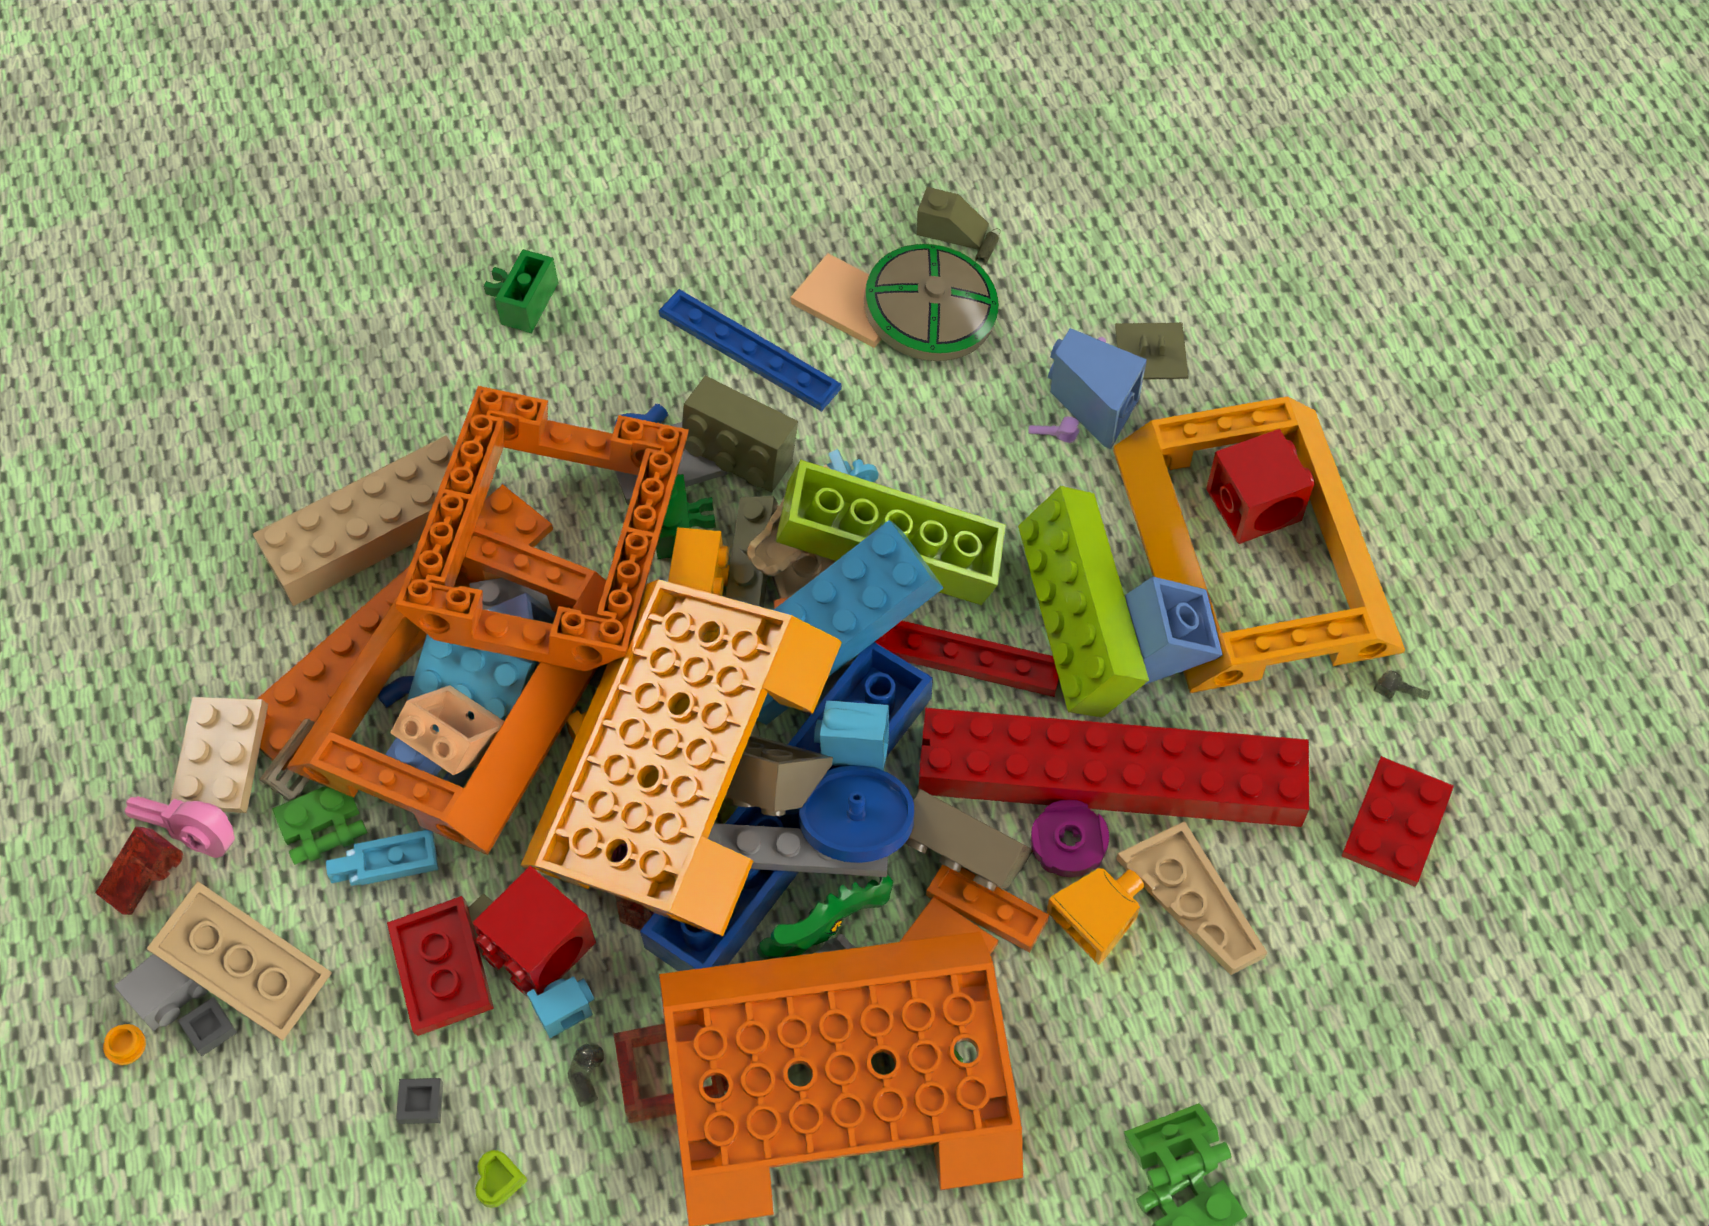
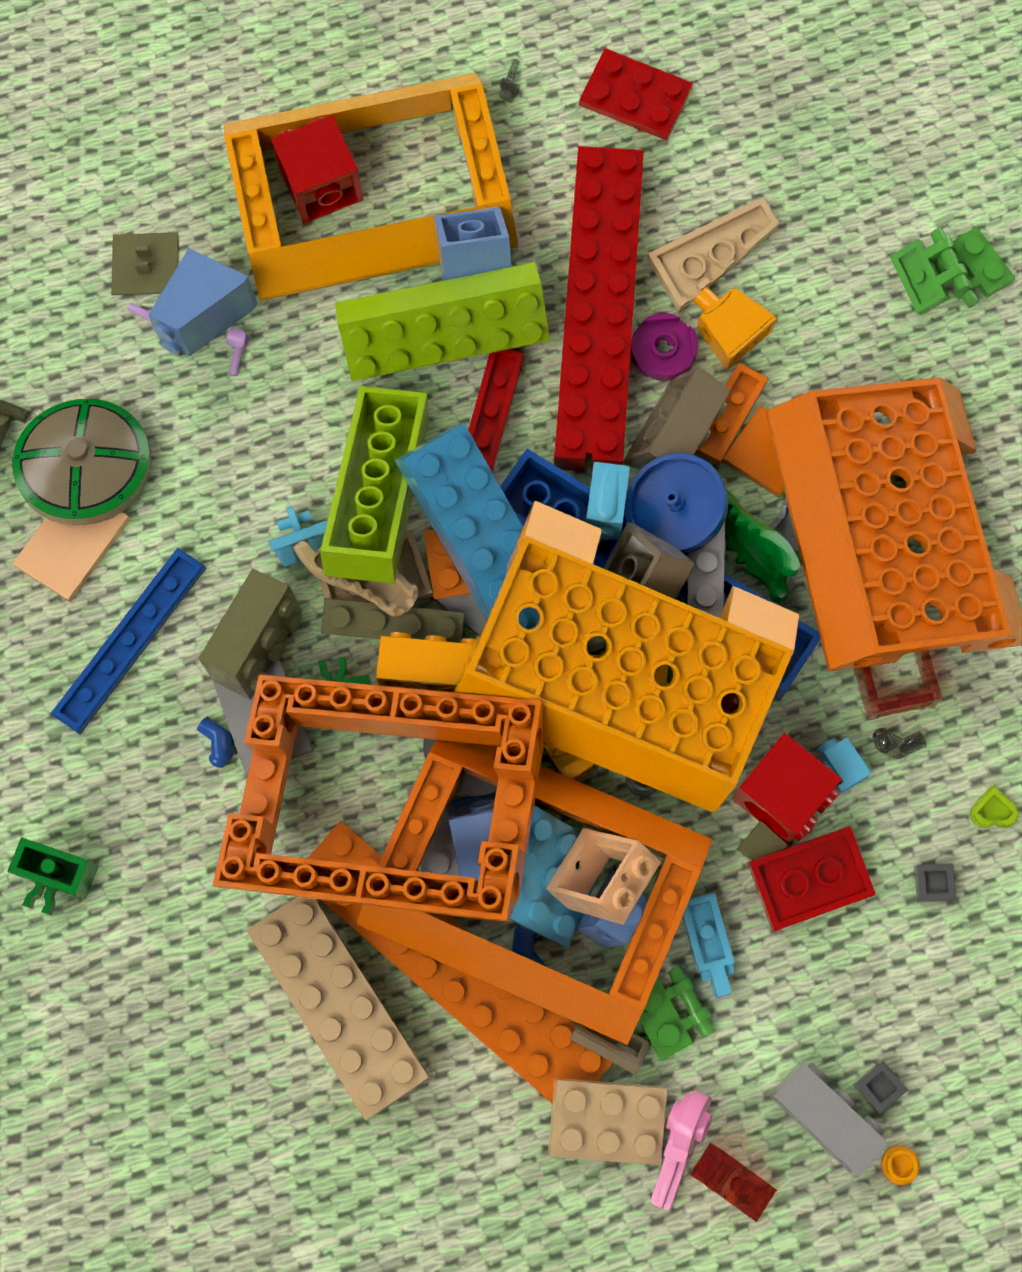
camera: 90 degrees left, 15 degrees up
(239, 960) = (830, 1059): tan plate -> none

